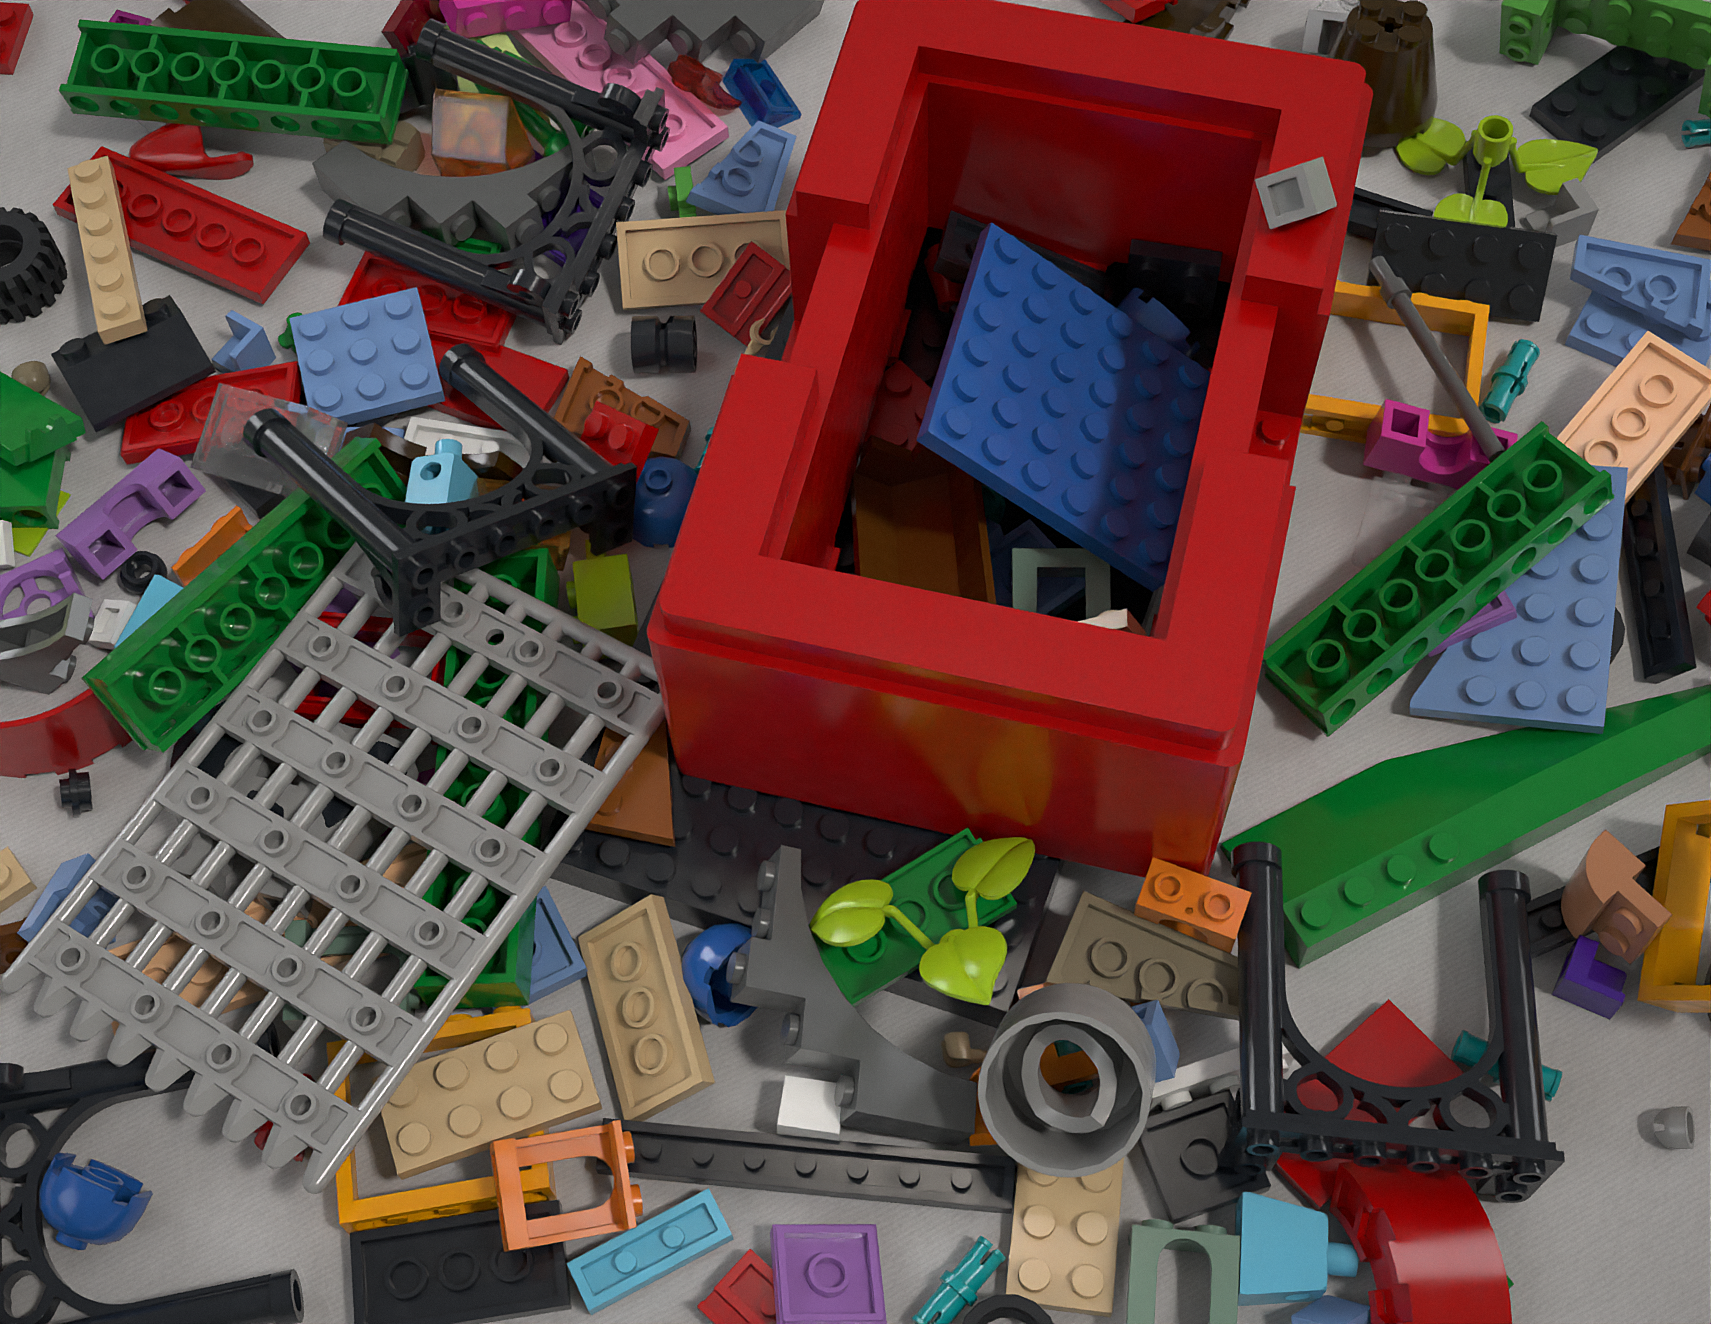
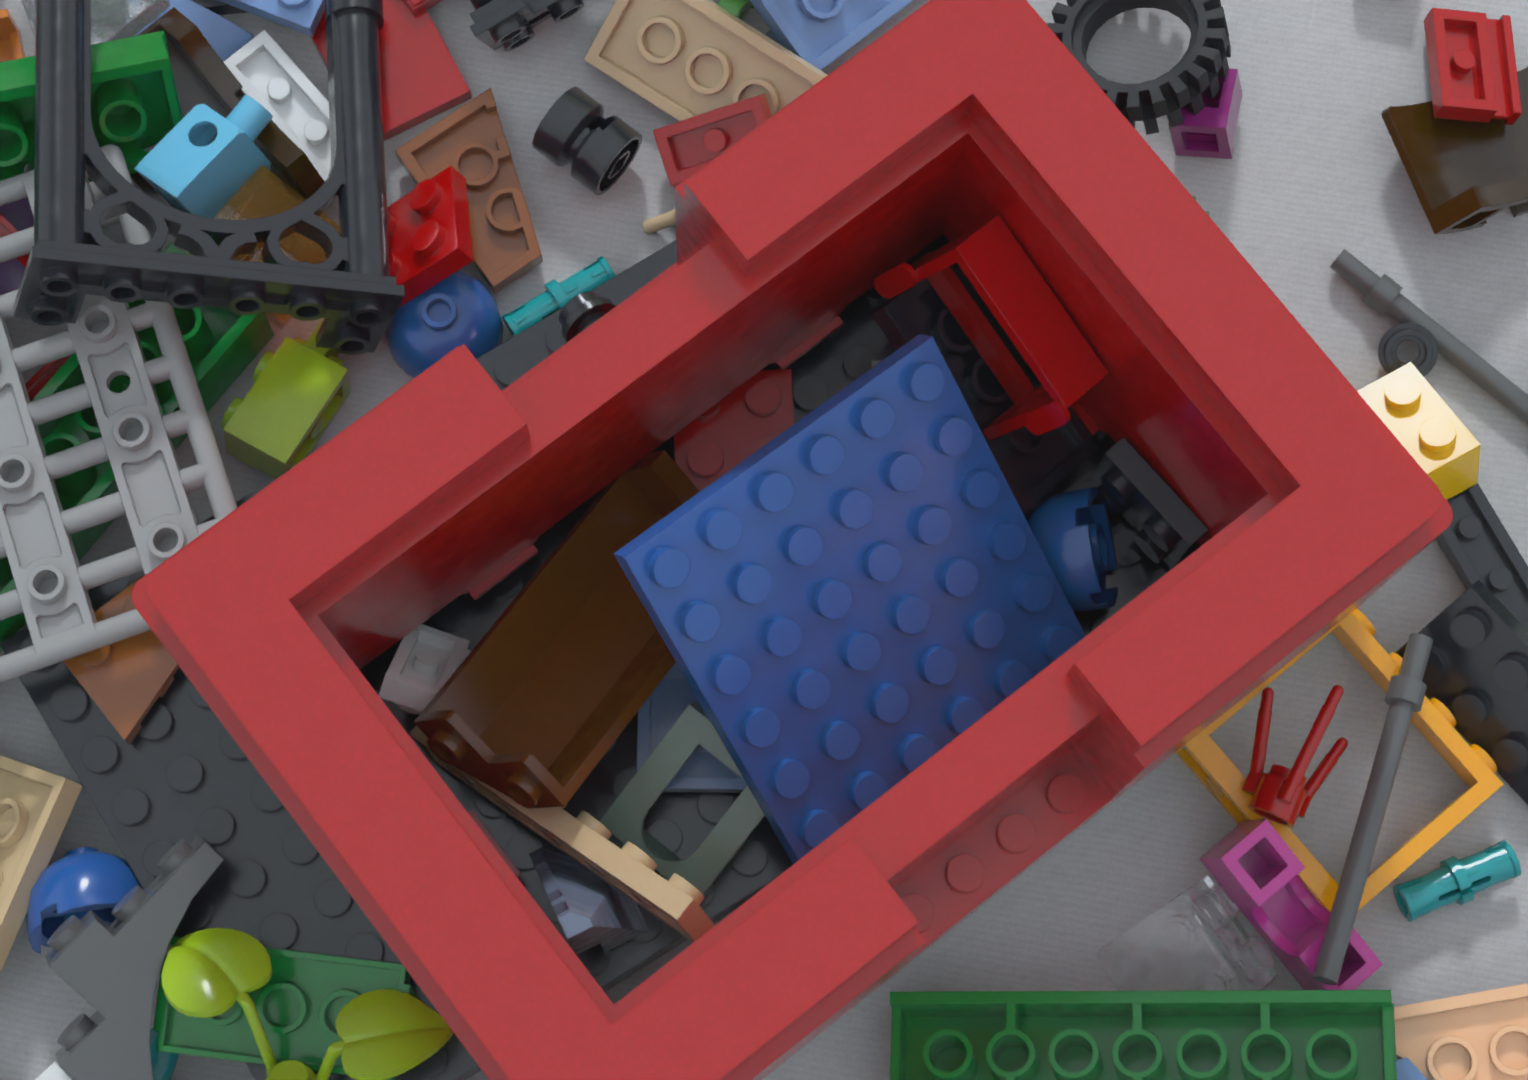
camera: 30 degrees right, 15 degrees up
(1031, 177) = (1026, 313): none -> red piece
(1296, 193) = (1205, 614): light grey panel -> none
(1377, 381) = (1283, 792): none -> red plant

